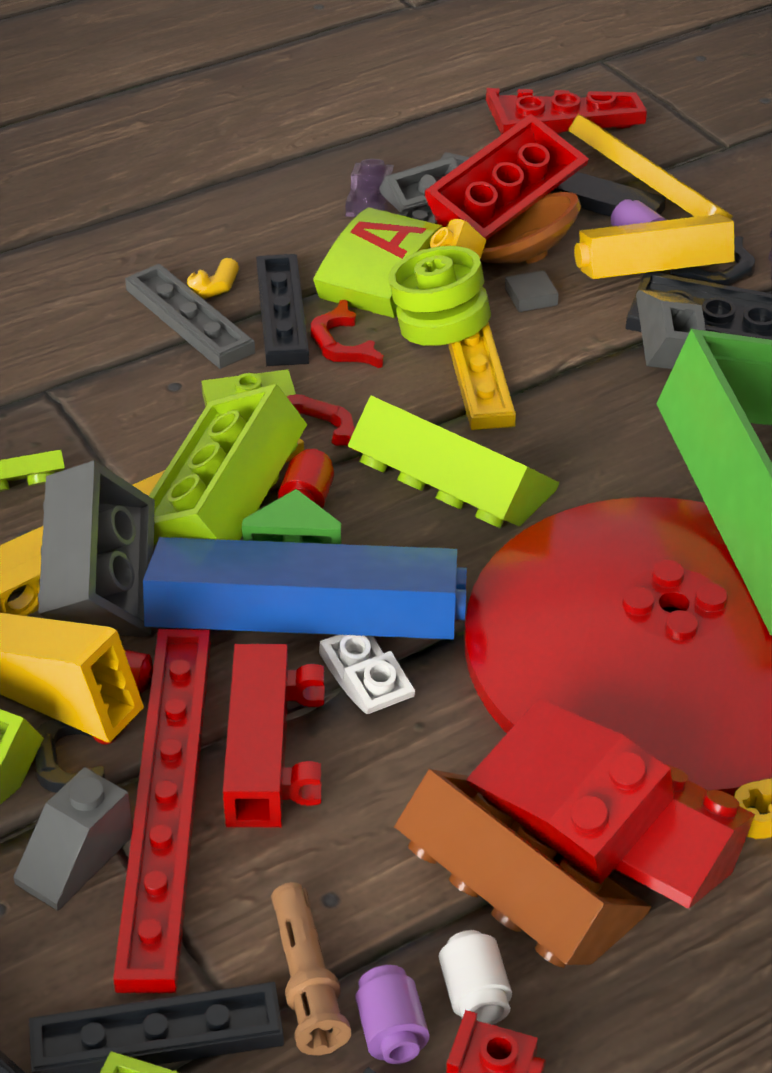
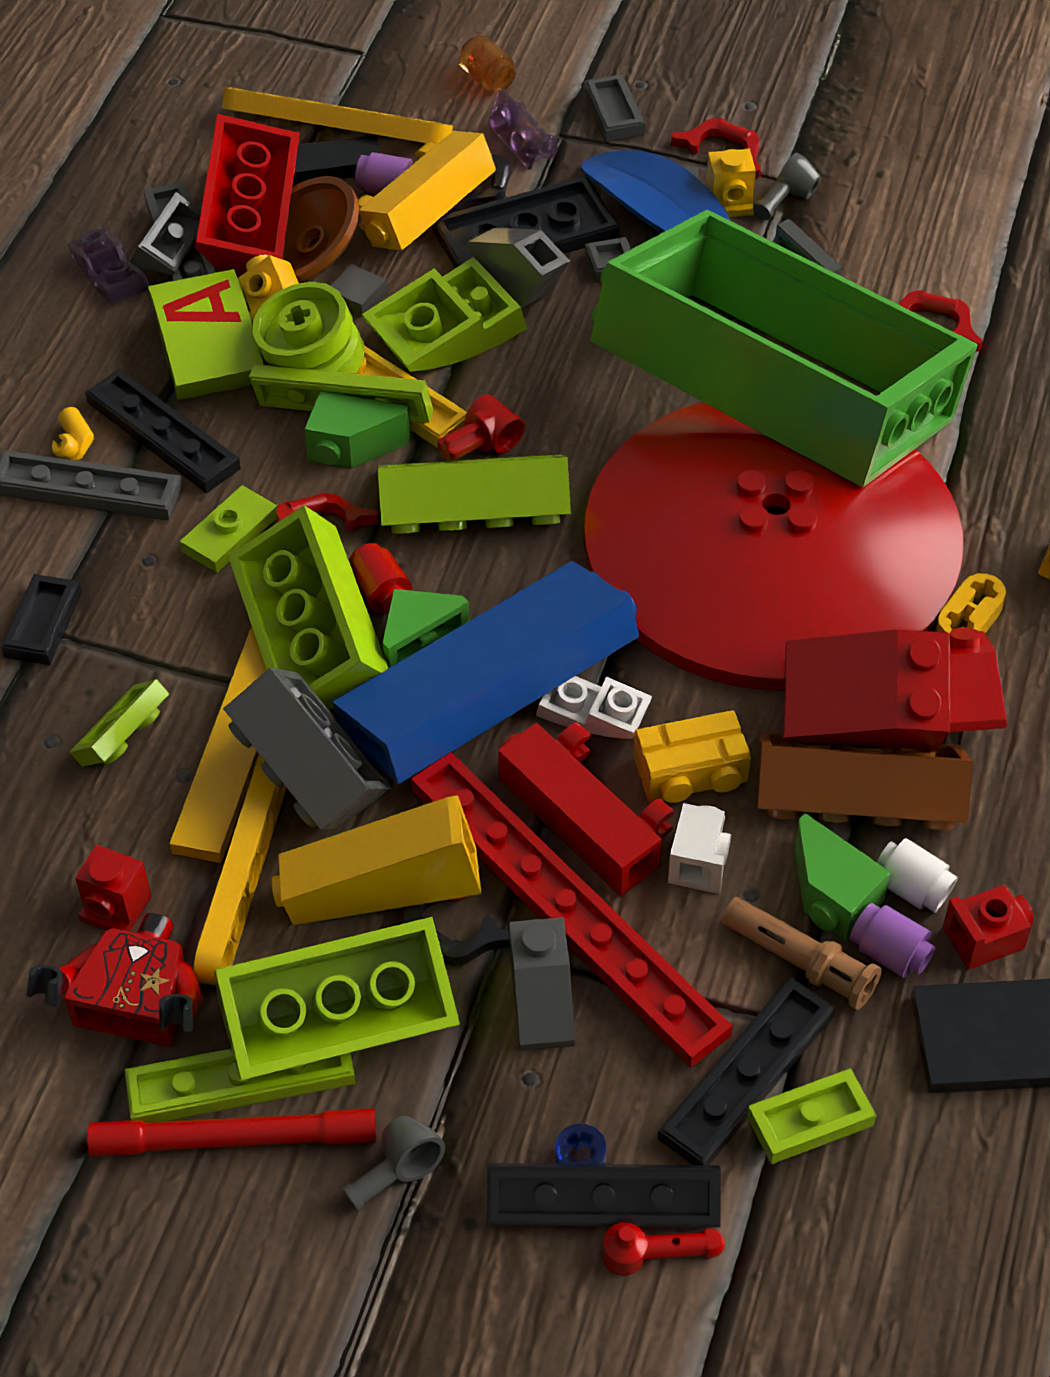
camera: 40 degrees left, 10 degrees up
(56, 380) = (41, 619): none -> black tile
(315, 825) = (699, 849): none -> white brick
(334, 350) = (249, 444): red helmet -> none
(388, 751) = (691, 757): none -> yellow brick
(398, 926) = (835, 878): none -> bright green slope
(409, 375) = (354, 429): none -> bright green slope
(426, 345) = (301, 387): none -> lime tile
(517, 428) = (485, 427): none -> red axle
(561, 109) = (191, 92): red wing -> none
(573, 340) = (446, 317): none -> lime slope

